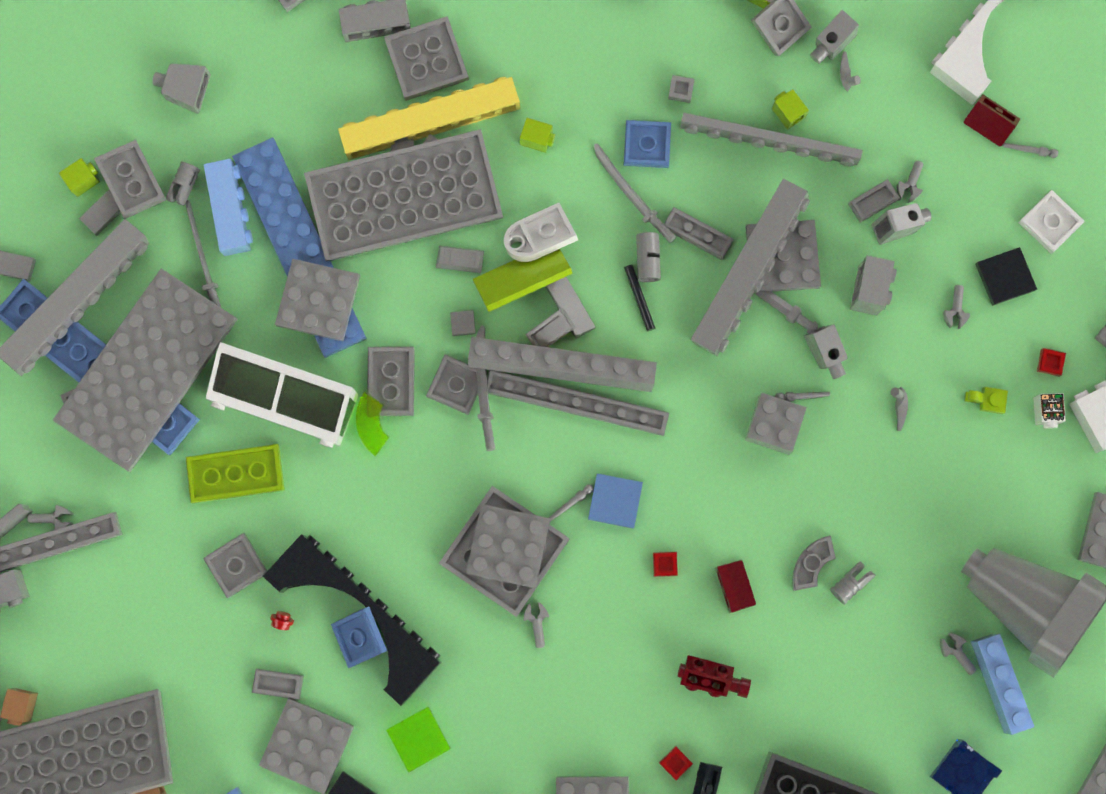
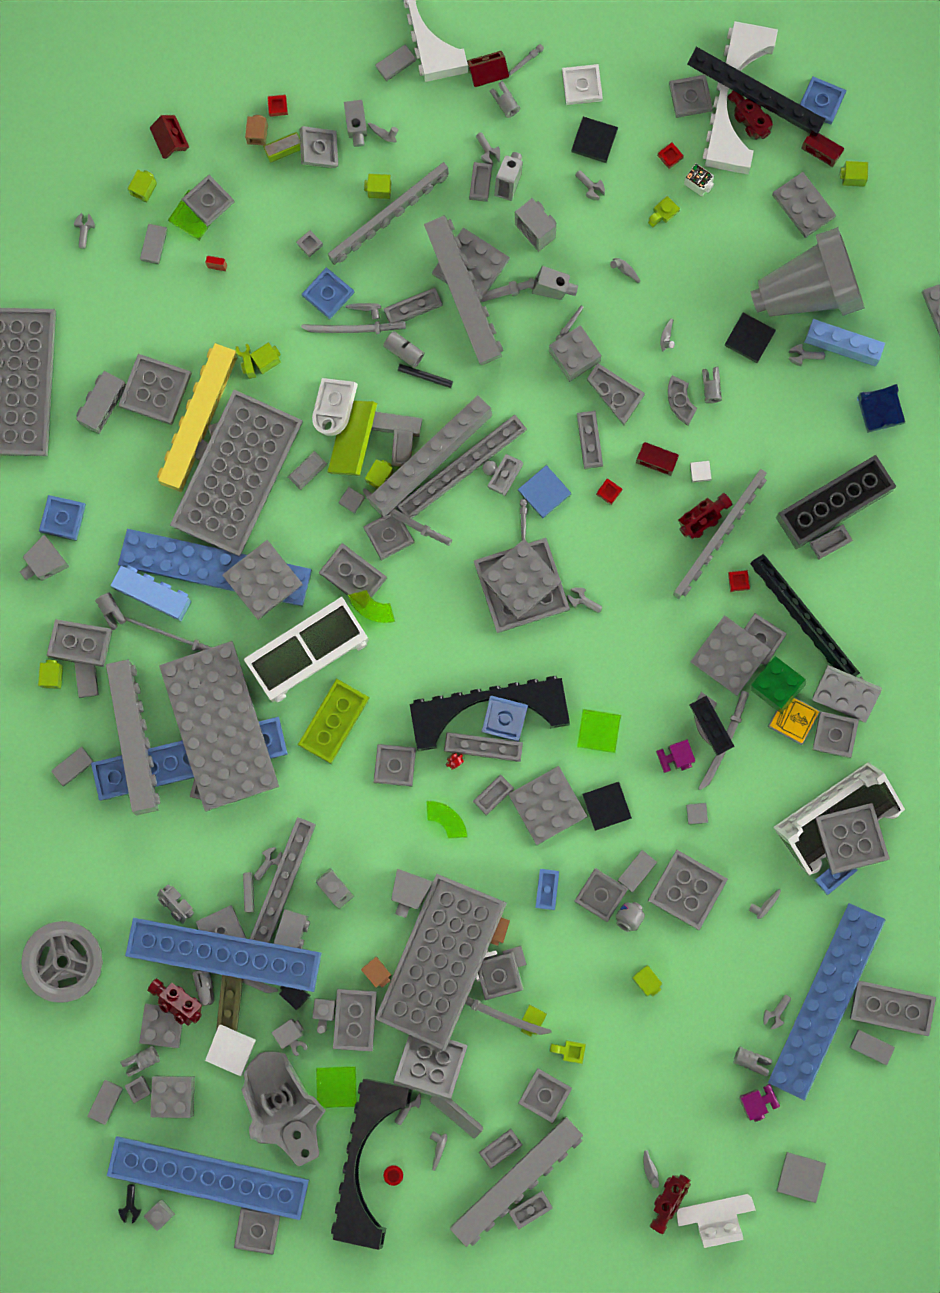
camera: 50 degrees left, 0 degrees up
(69, 600) = (334, 888): none -> light grey torso
(121, 675) = (409, 891): none -> light grey torso
(221, 657) = (447, 818): none -> clear neon green tile
(239, 71) = (62, 517): none -> medium blue tile
(317, 637) = (483, 747): none -> light grey tile
(507, 328) = (379, 473): none -> lime brick
(515, 124) = (247, 365): none -> lime plate
(592, 18) = (216, 263): none -> red tile
(602, 448) = (504, 474): none -> light grey plate
(661, 189) = (373, 307): none -> light grey bar
(702, 504) = (589, 439): none -> light grey tile
(719, 709) = (716, 541): none -> light grey plate
(756, 639) = (700, 471): none -> white tile
(769, 493) = (615, 392): none -> light grey wing
(864, 499) = (665, 337): none -> light grey bar
(925, 30) = (395, 62): none -> light grey tile
(931, 583) = (750, 337): none -> black tile
(973, 162) = (505, 101): none -> light grey hinge

